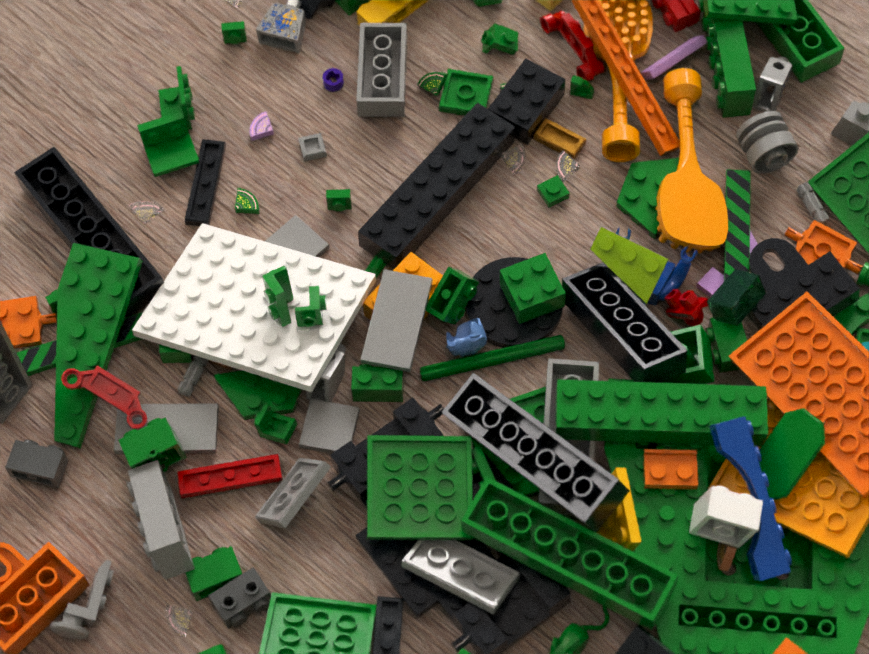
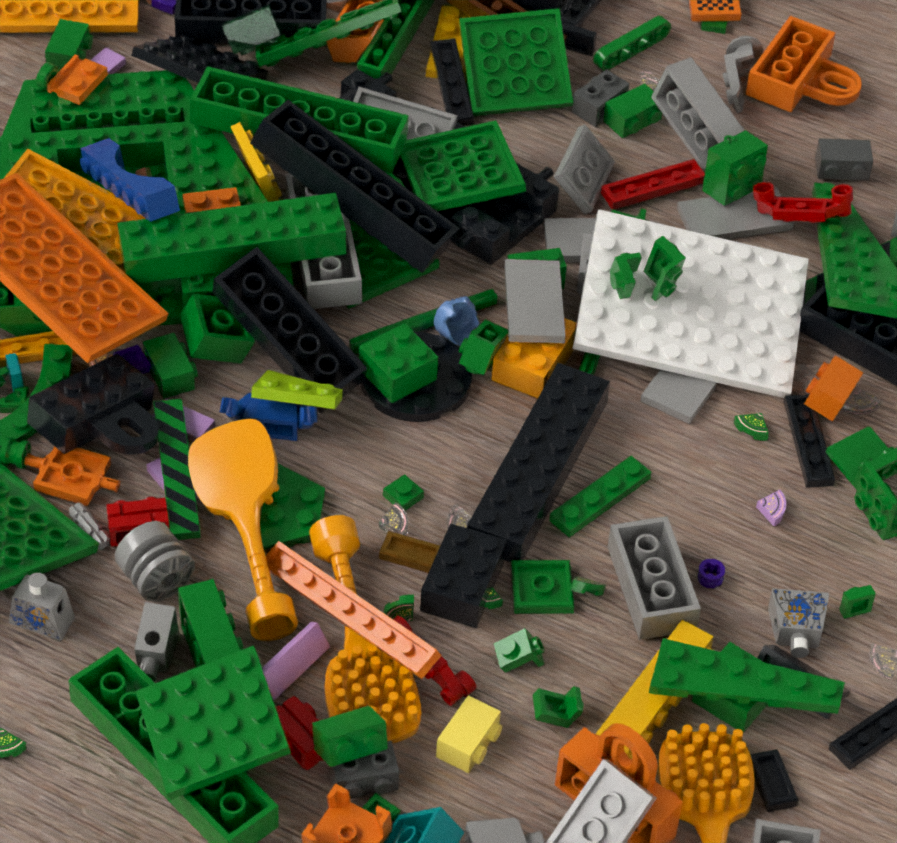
camera: 160 degrees right, 15 degrees down
(167, 211) = (832, 388): none -> orange brick
(312, 147) = (703, 496): light grey tile -> none
(339, 199) = (647, 437): green plate -> none
(392, 162) = (600, 496): none -> green plate
(686, 306) = (219, 380): red hips -> none
(726, 516) = (151, 154): white brick -> none
(736, 297) = (168, 375): clear green brick -> none
(774, 194) = (126, 516): none -> red brick
(791, 451) = (94, 216): green shield -> none

